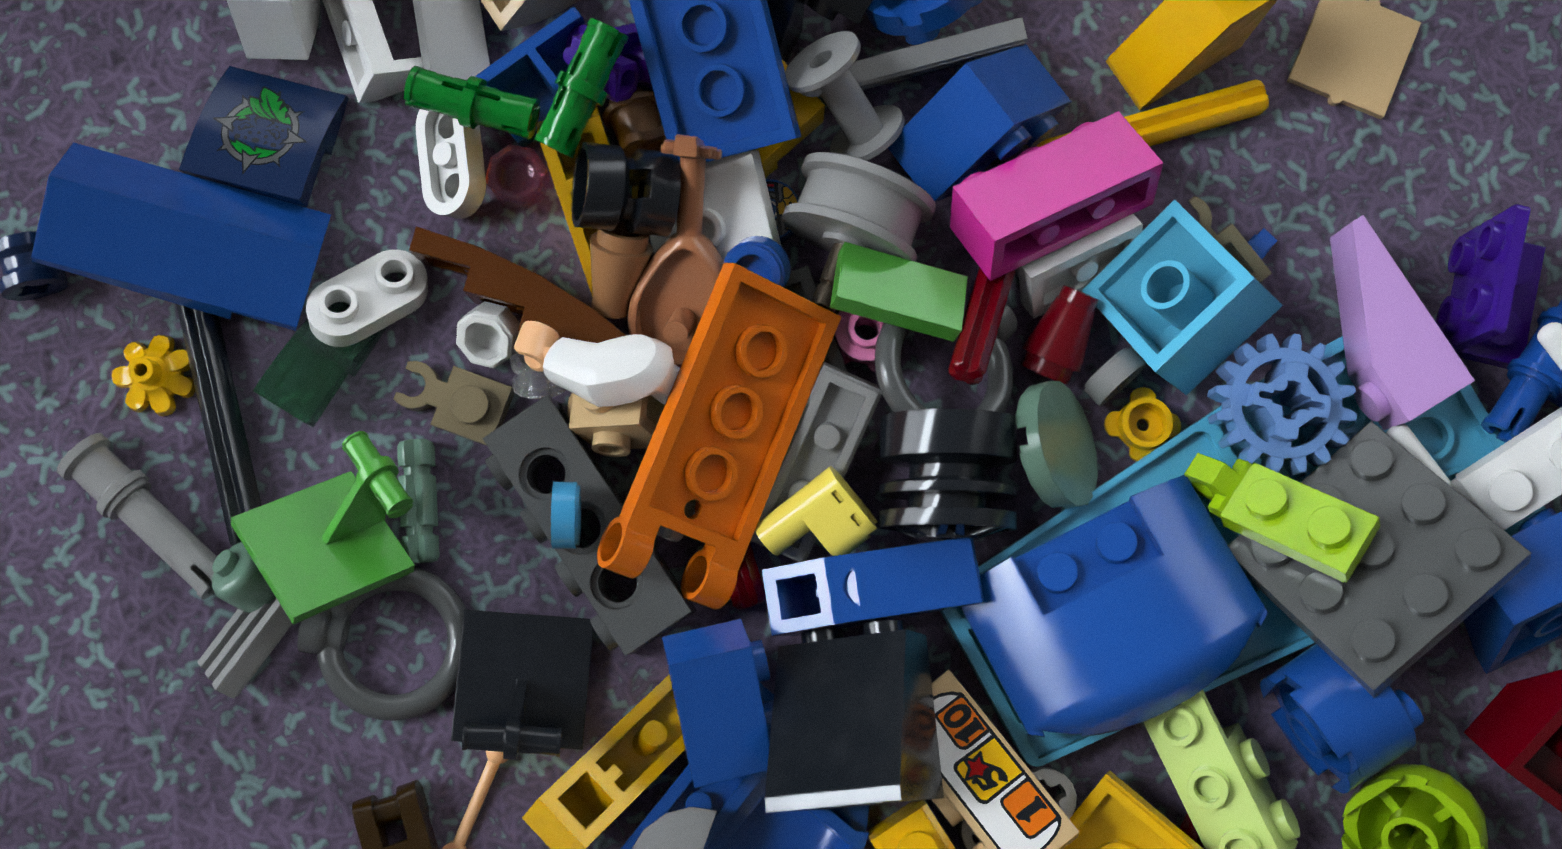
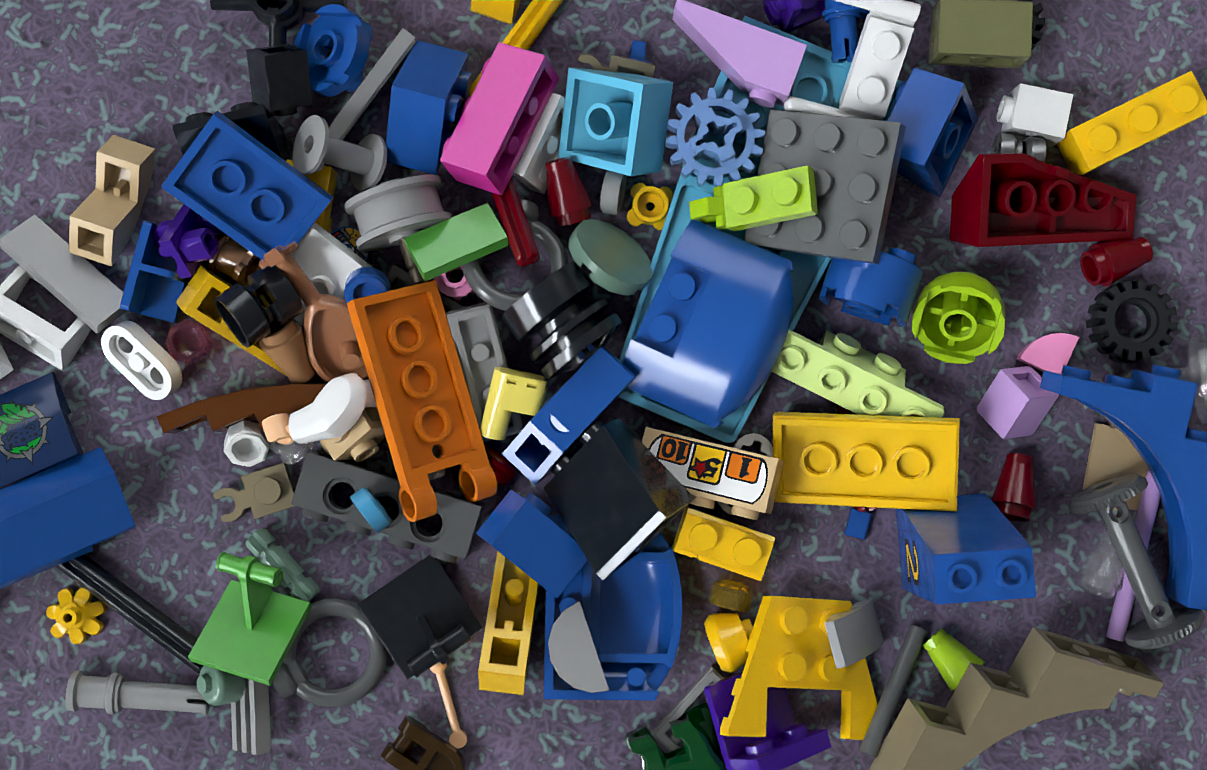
camera: 40 degrees left, 5 degrees up
(311, 372) = (162, 531): clear green slope -> none
(371, 298) = (164, 475): white plate -> none
(472, 102) = (130, 322): green pin -> none
(581, 87) = (188, 268): green pin -> none

